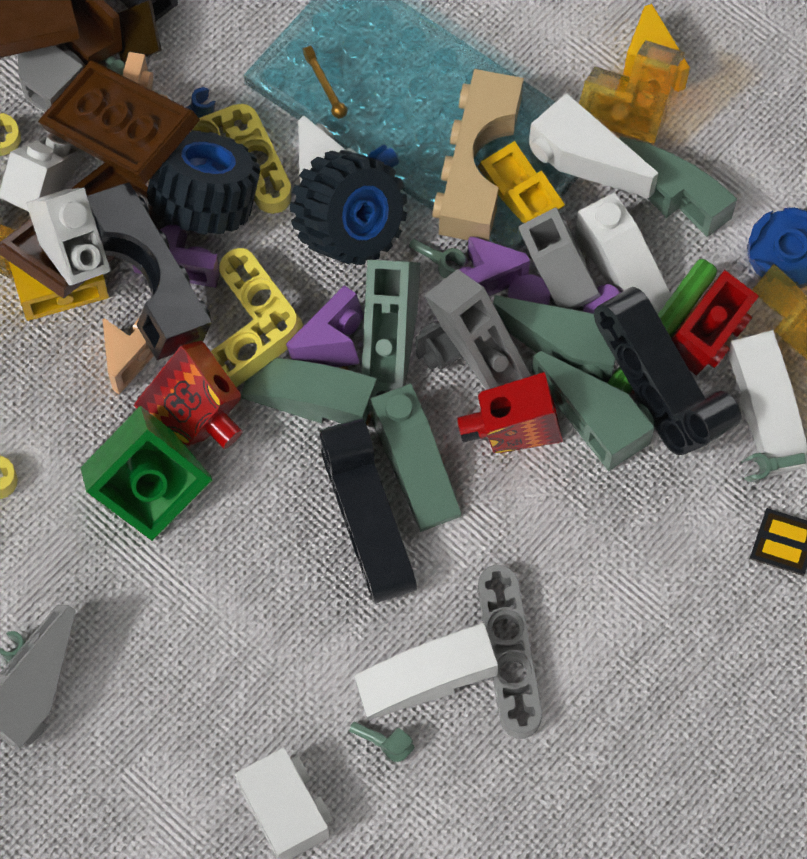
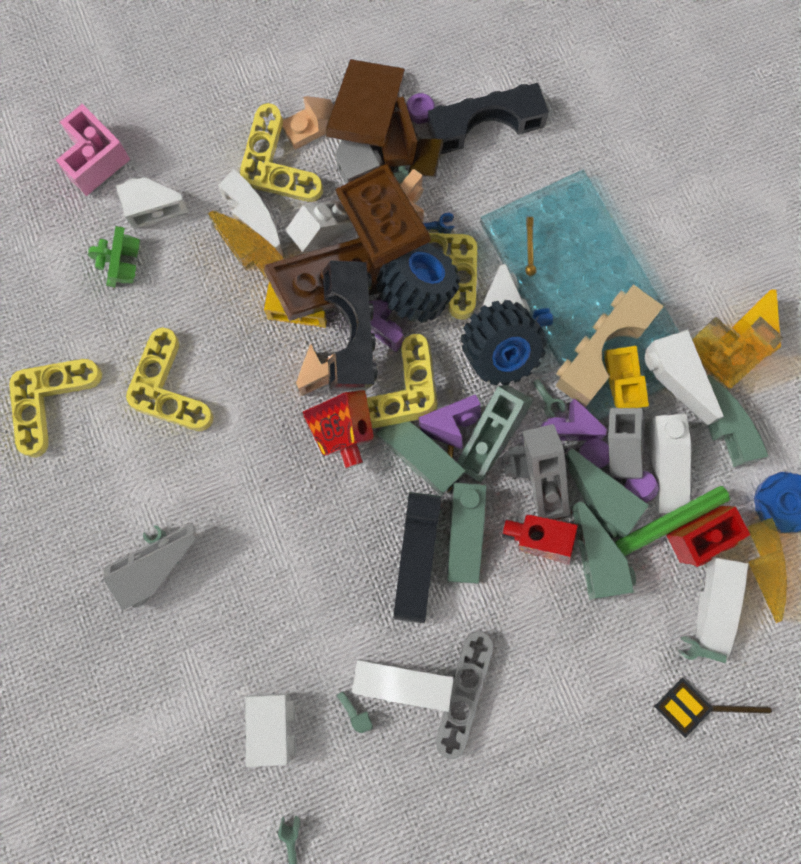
camera: 25 degrees right, 10 degrees up
(69, 234) = (311, 281): white slope -> none
(144, 474) = (286, 462): green slope -> none
(660, 375) = (656, 561): black beam -> none

